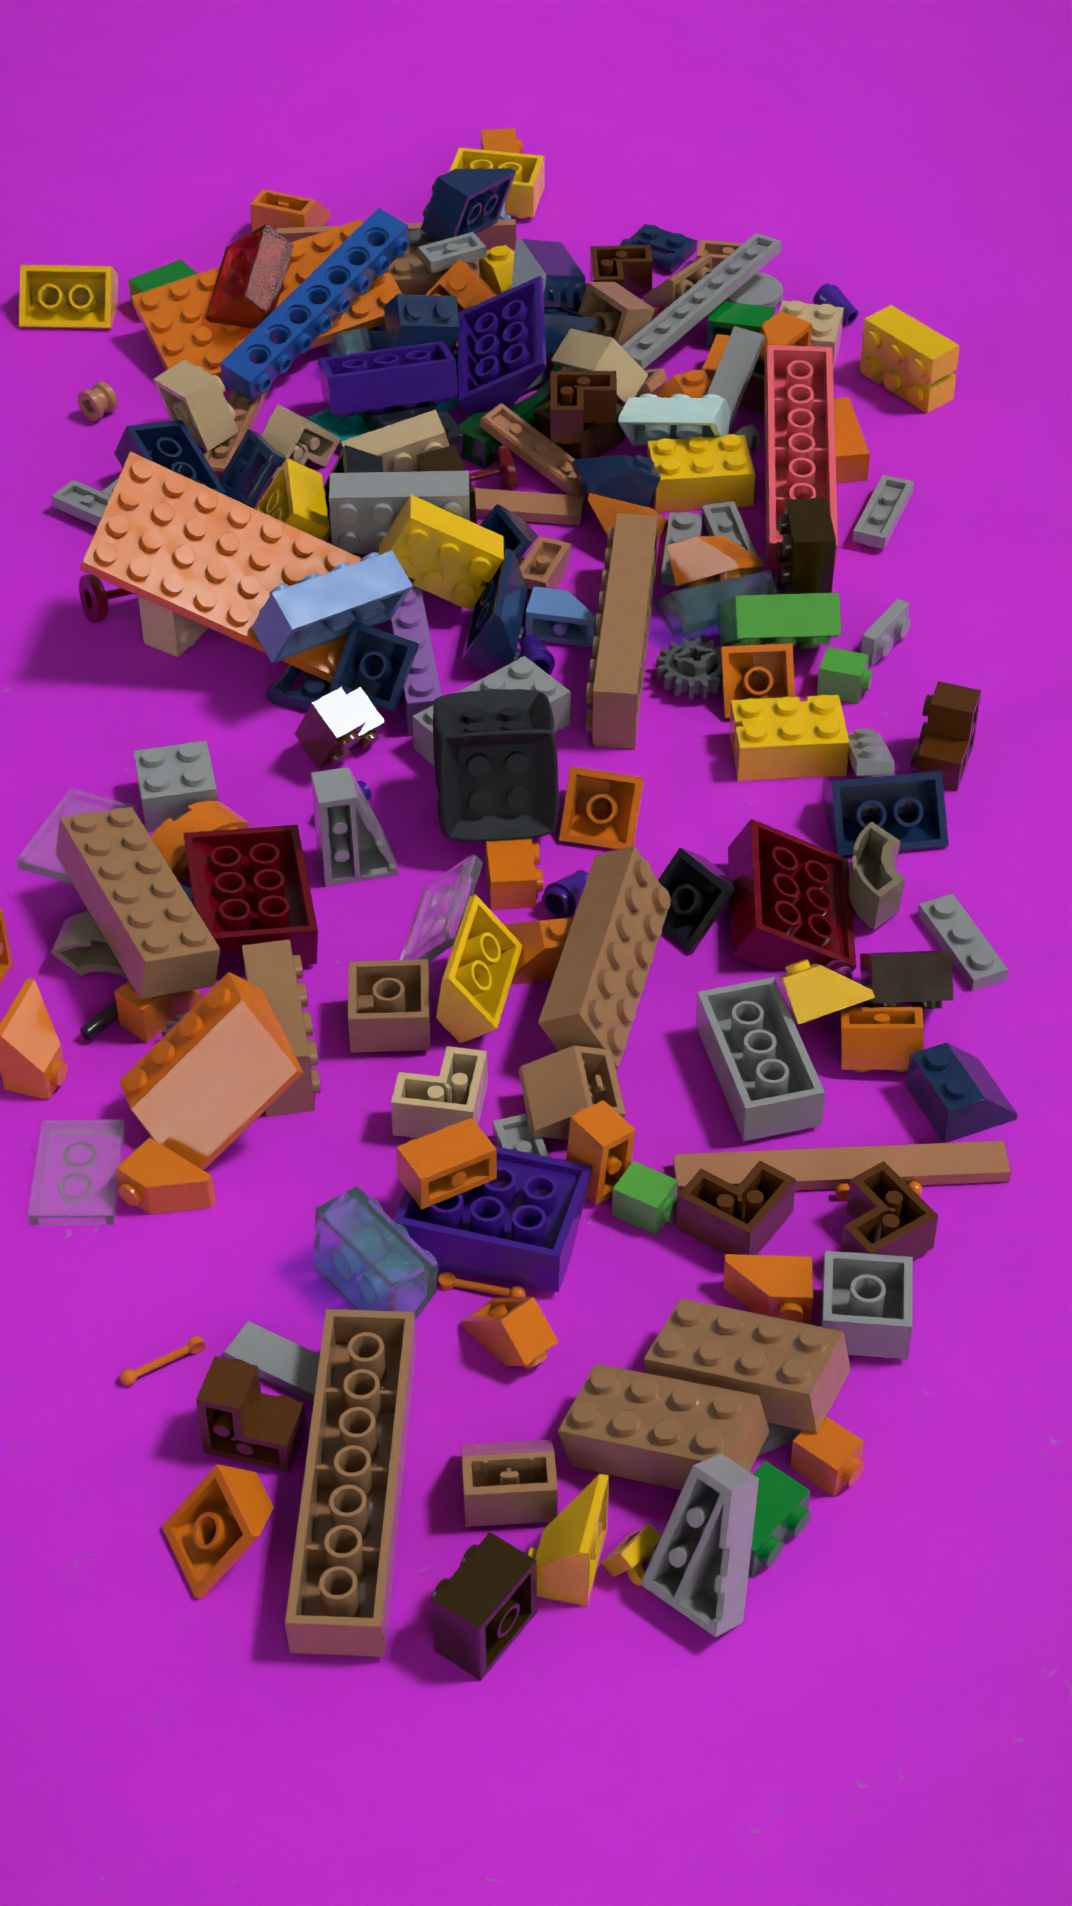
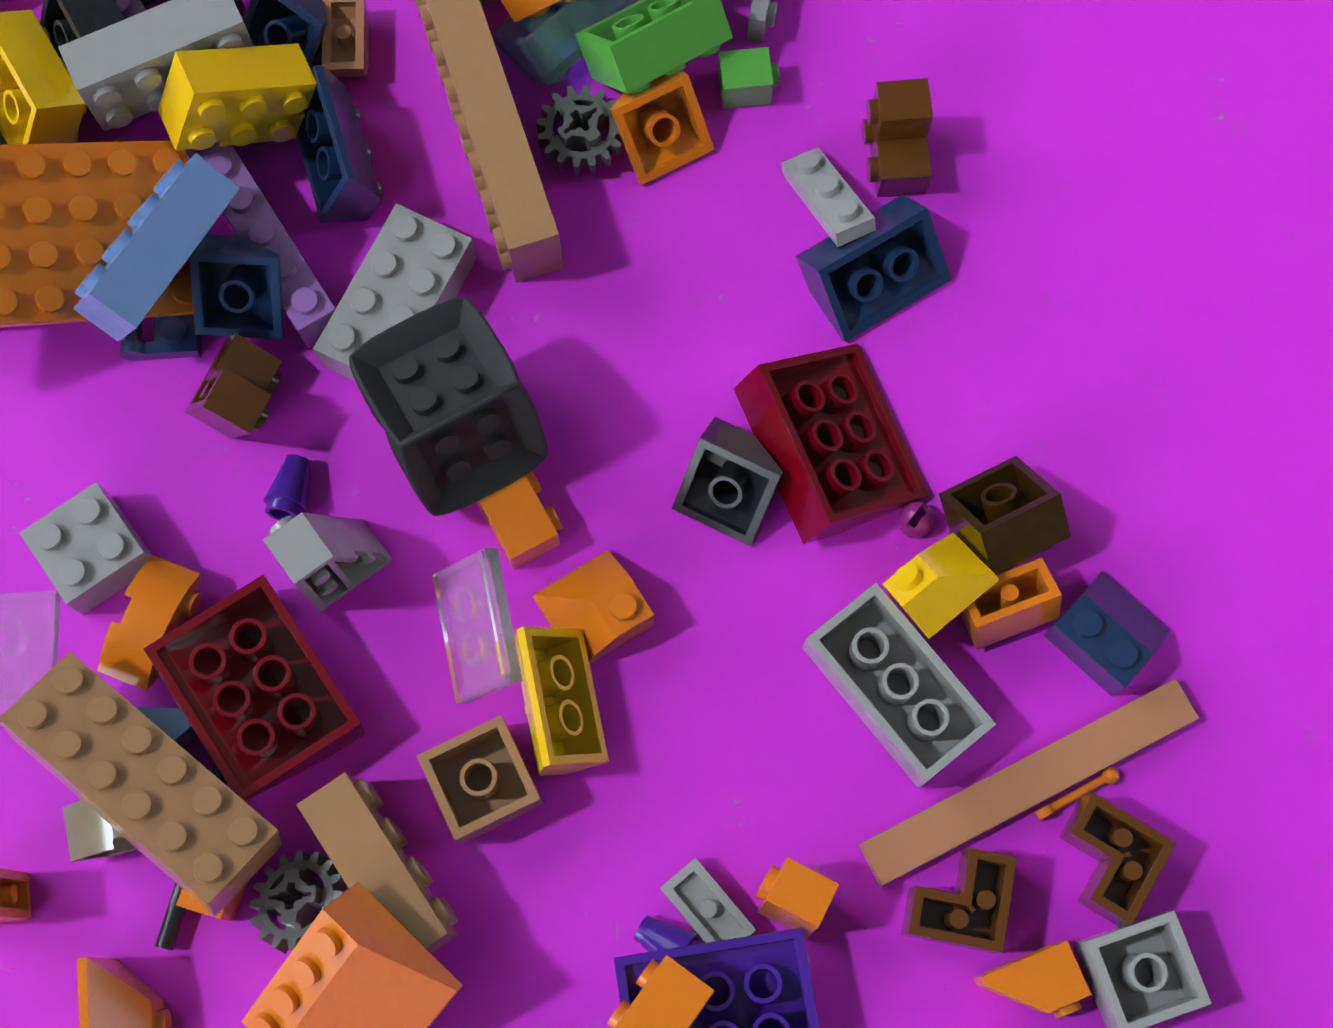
camera: 25 degrees left, 30 degrees up
(433, 1102) = (611, 892): tan brick -> none
(536, 652) = (399, 181): dark purple cone -> none
(559, 618) = (398, 111): medium blue slope -> none
(563, 895) = (591, 524): dark purple cone -> none
(566, 1083) = (731, 826): medium nougat slope -> none
(601, 808) = (575, 385): orange slope -> none
(606, 955) = (688, 627): medium nougat brick -> none
(645, 1198) = (861, 920): bright green brick -> none
(788, 737) = (729, 198): yellow piece -> none
(873, 881) = (904, 374): dark tan brick -> none
(959, 934) = (1021, 414): light grey plate -> none

